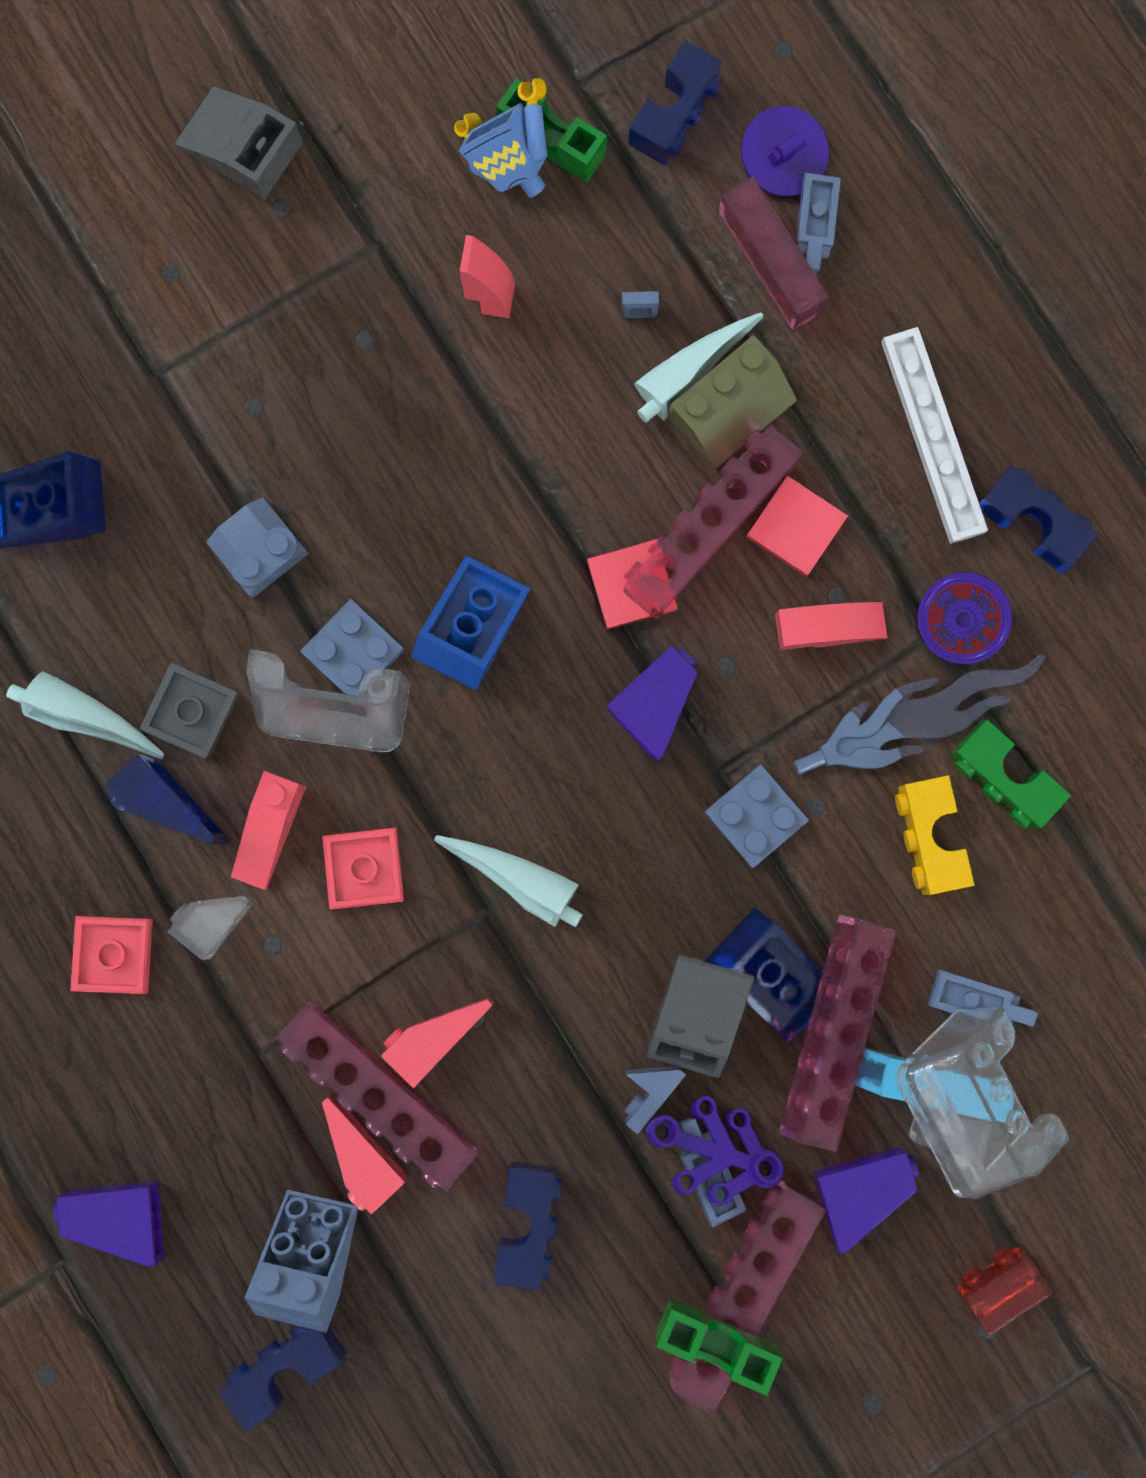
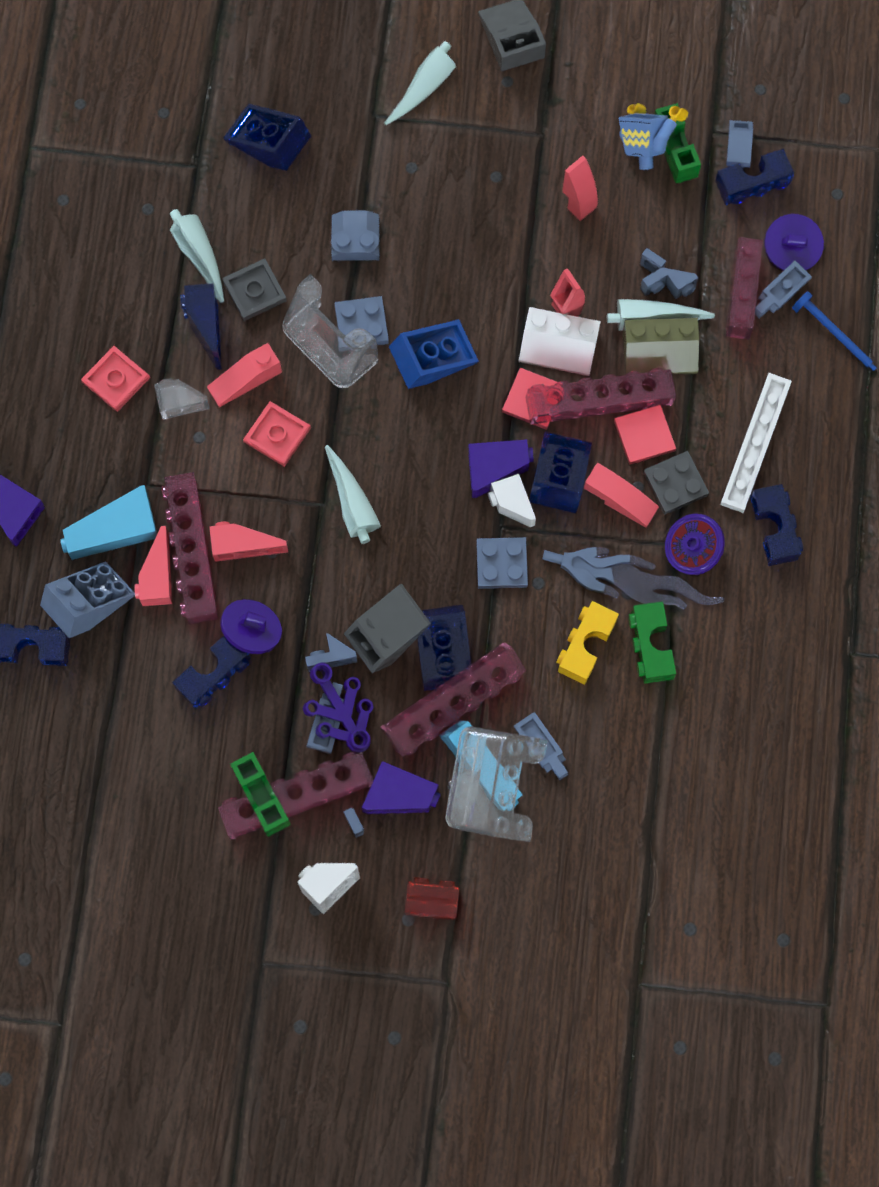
camera: 35 degrees right, 10 degrees down
(182, 276) = (427, 78): none -> light aqua piece
(264, 1138) = (114, 526): none -> medium azure slope
(529, 1136) = (251, 626): none -> dark purple shield
(581, 429) = (568, 295): none -> coral slope
(608, 490) = (559, 341): none -> white slope
(625, 73) = (739, 143): none -> sand blue slope
(684, 308) = (677, 282): none -> sand blue slope
(710, 731) = (512, 500): none -> white slope
(738, 652) = (560, 472): none -> clear blue slope
(840, 1272) = (354, 822): none -> sand blue tile
(856, 215) = (805, 301): none -> blue piece
(879, 557) = (676, 482): none -> dark grey plate
(881, 1385) = (327, 882): none -> white slope

